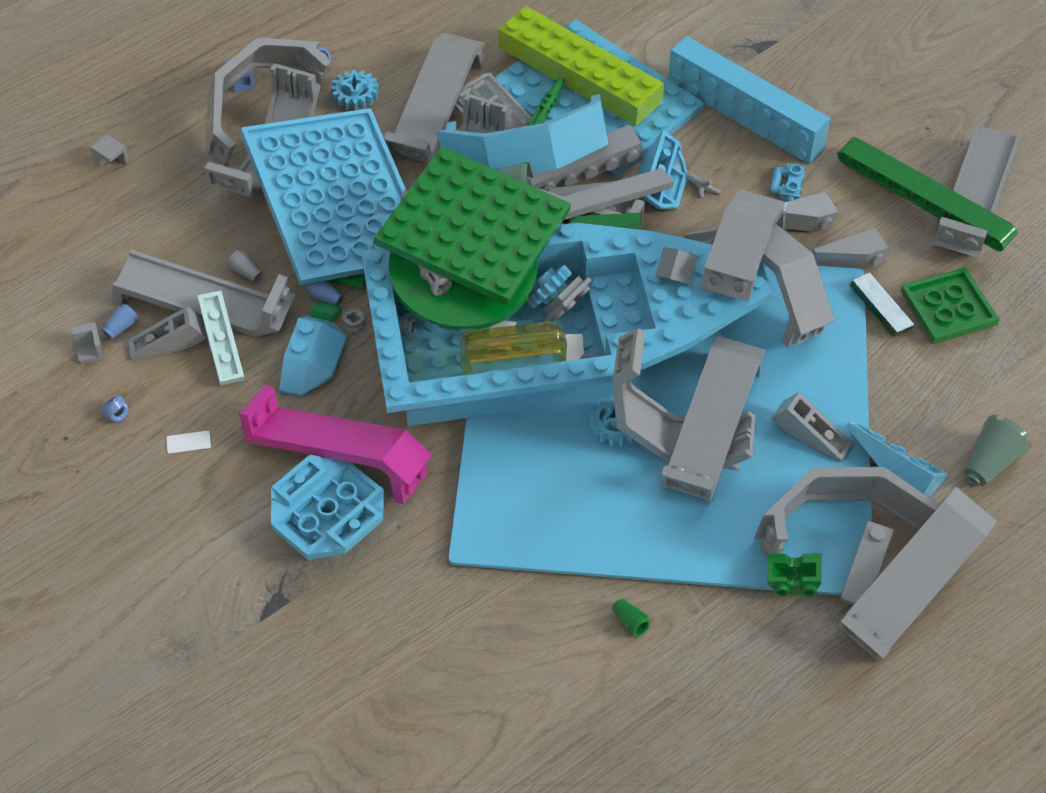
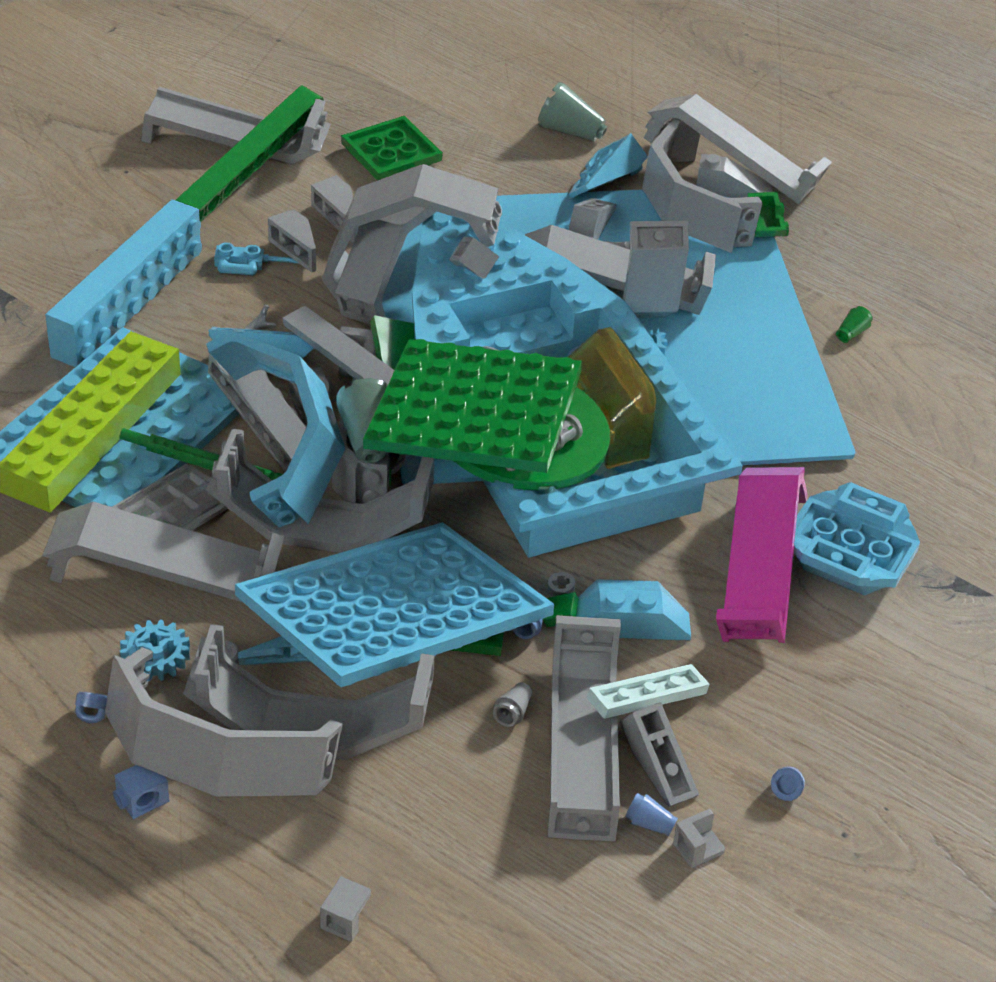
camera: 105 degrees left, 10 degrees down
(188, 442) = (796, 709): white sticker -> none

